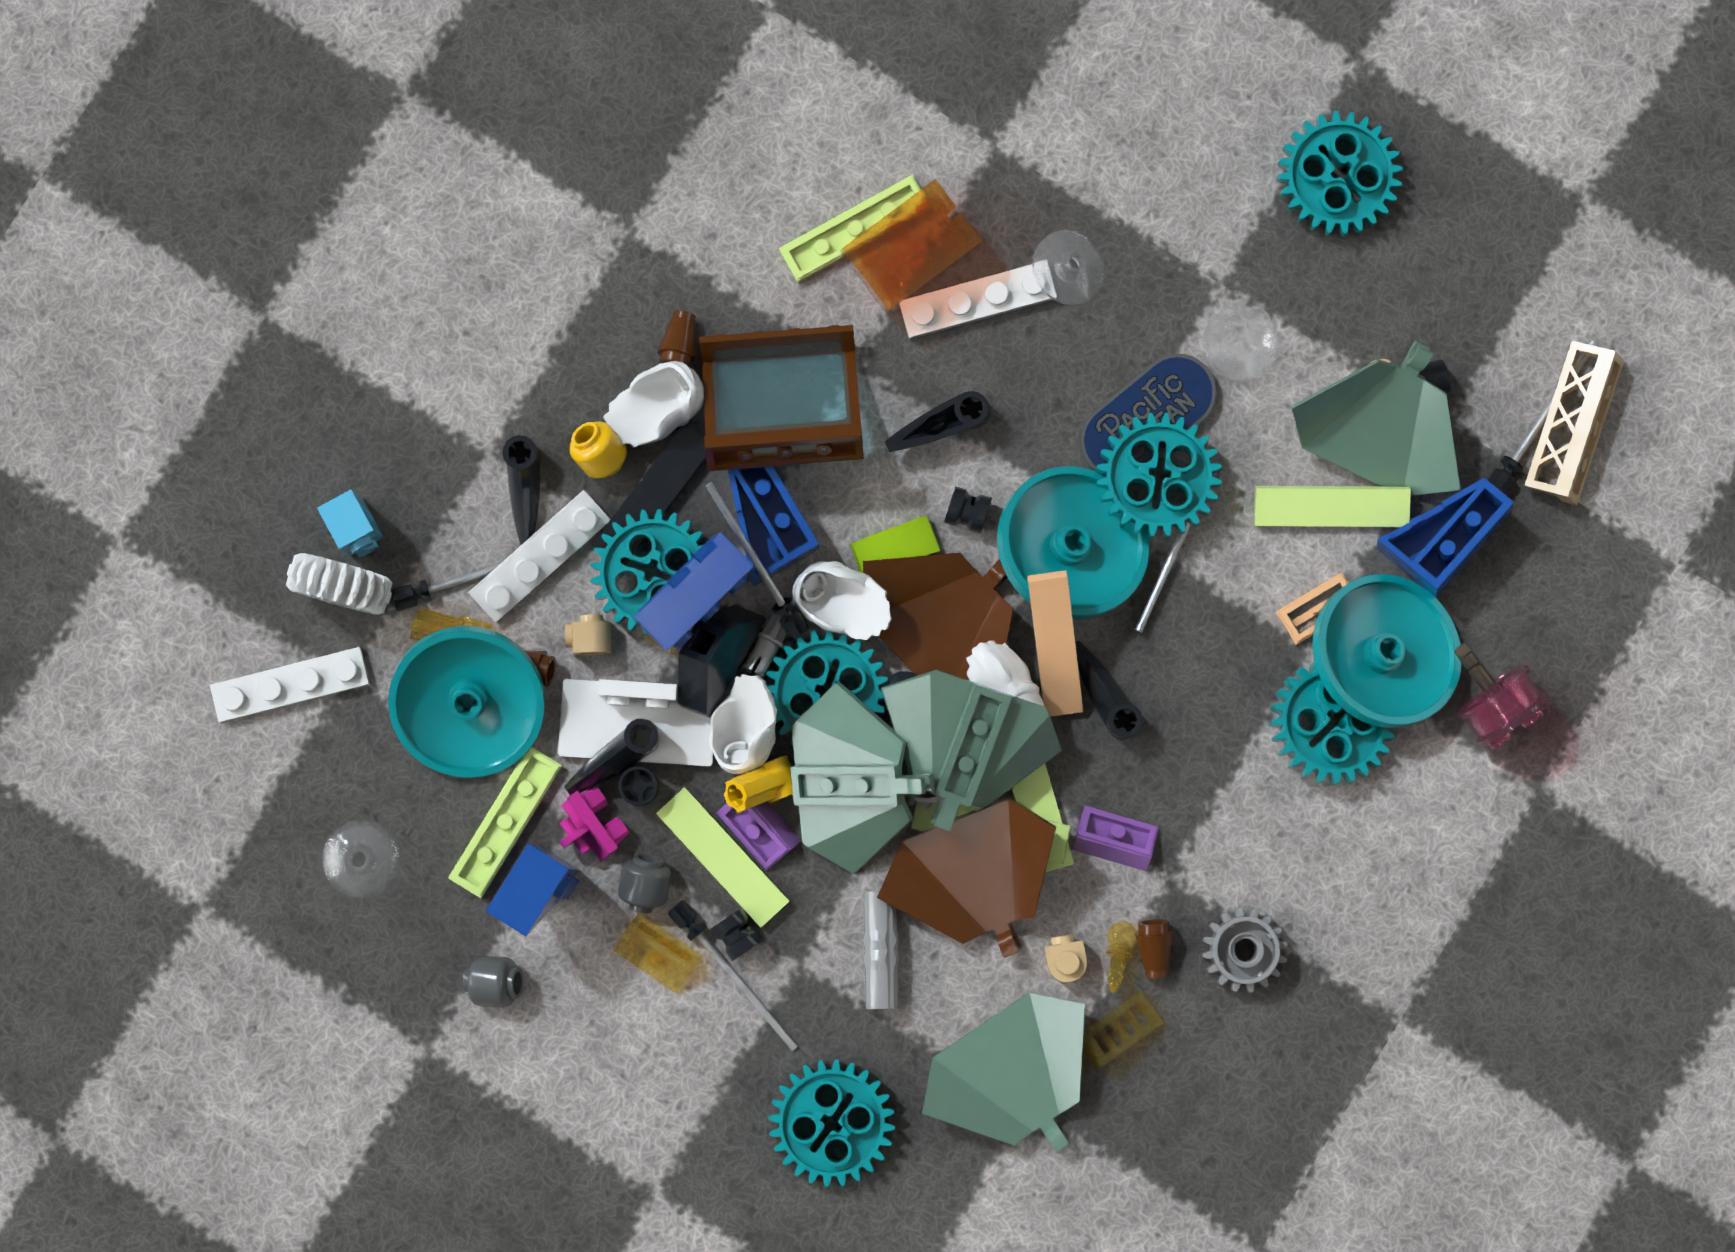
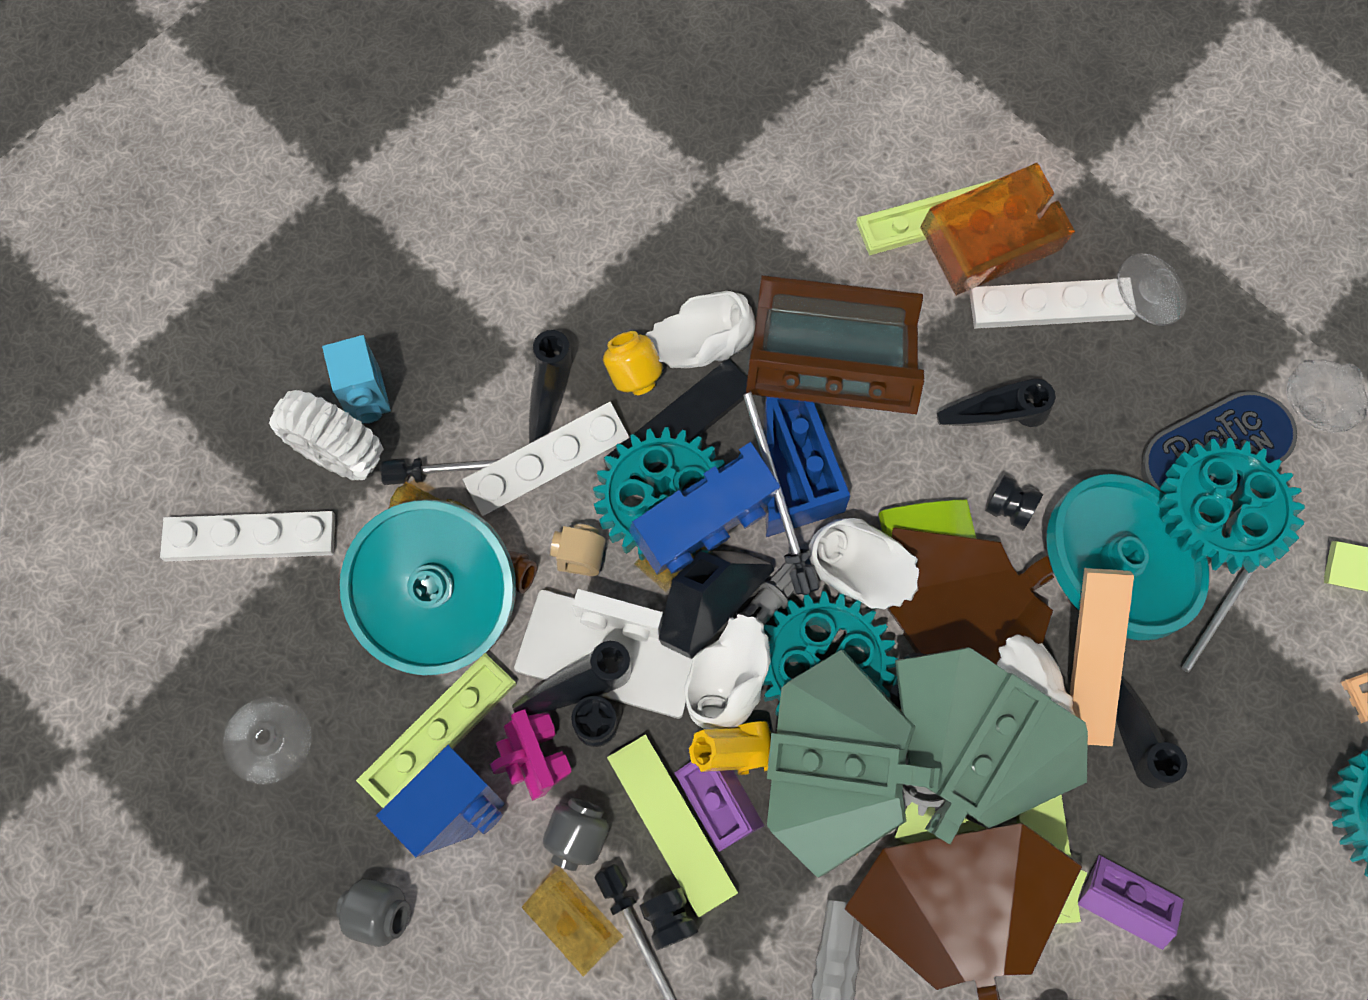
camera: 10 degrees right, 15 degrees down
(679, 339) = (741, 276): reddish brown cone -> none

